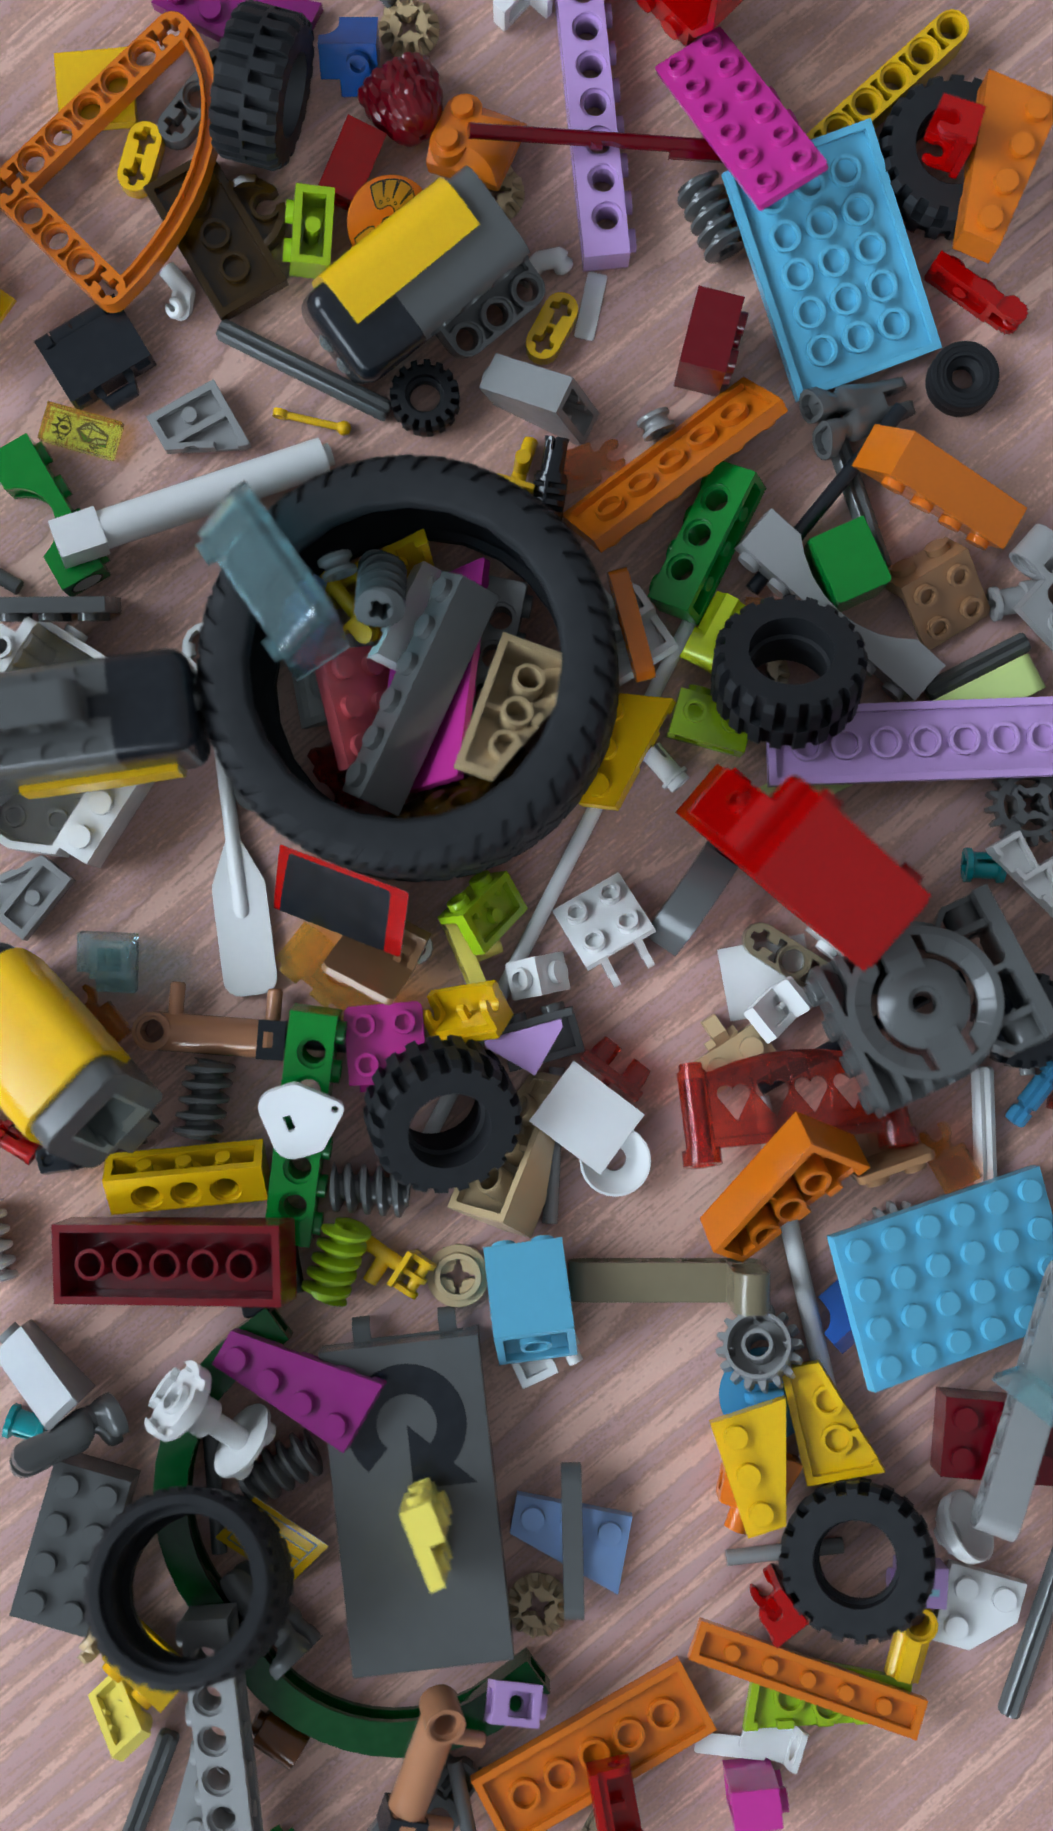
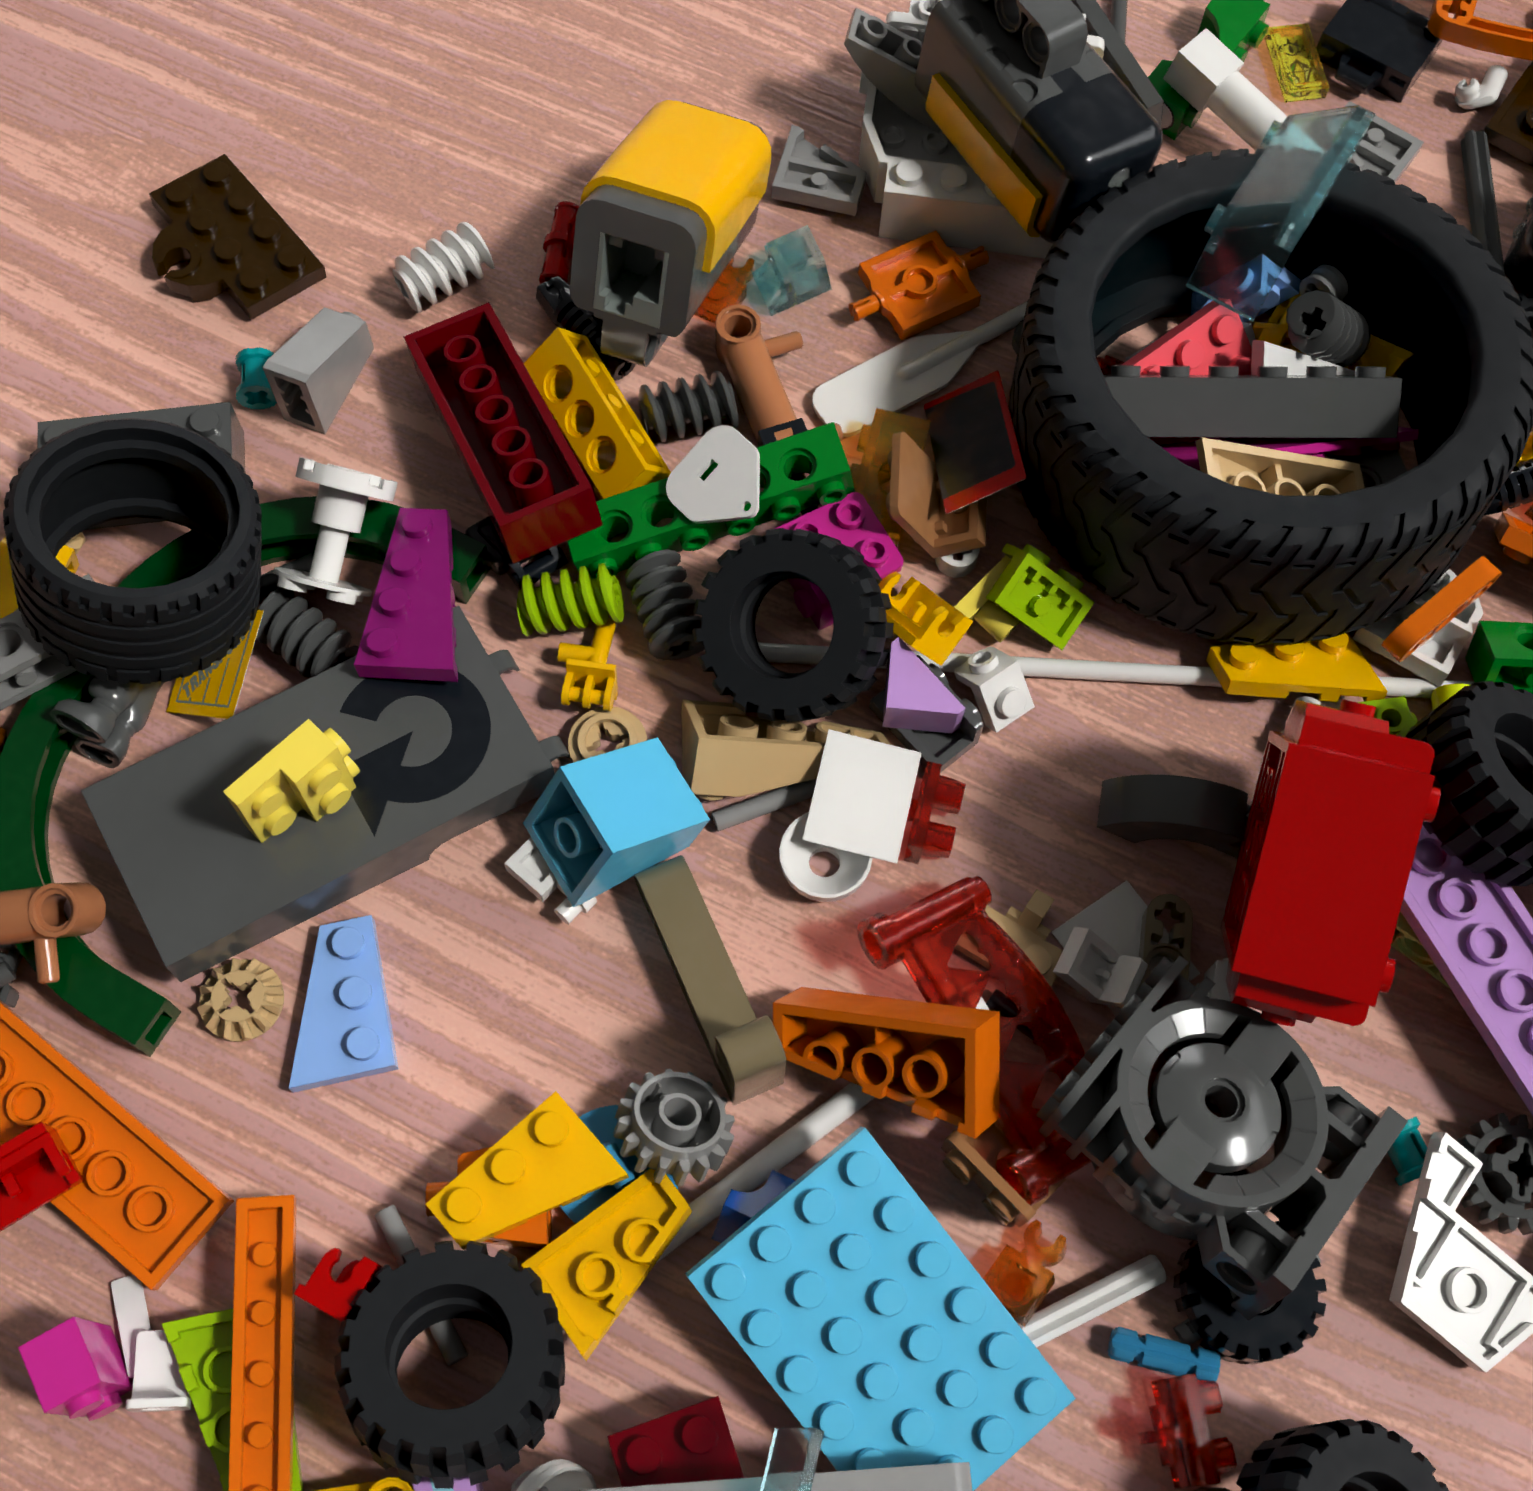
camera: 70 degrees right, 20 degrees down
(70, 1436) = (260, 401): dark grey piece -> none
(166, 862) = (919, 284): none -> orange plate
(532, 1707) = (108, 975): lavender brick -> none
(572, 1540) = (338, 990): dark grey beam -> none
(604, 923) = (1092, 729): white plate -> none

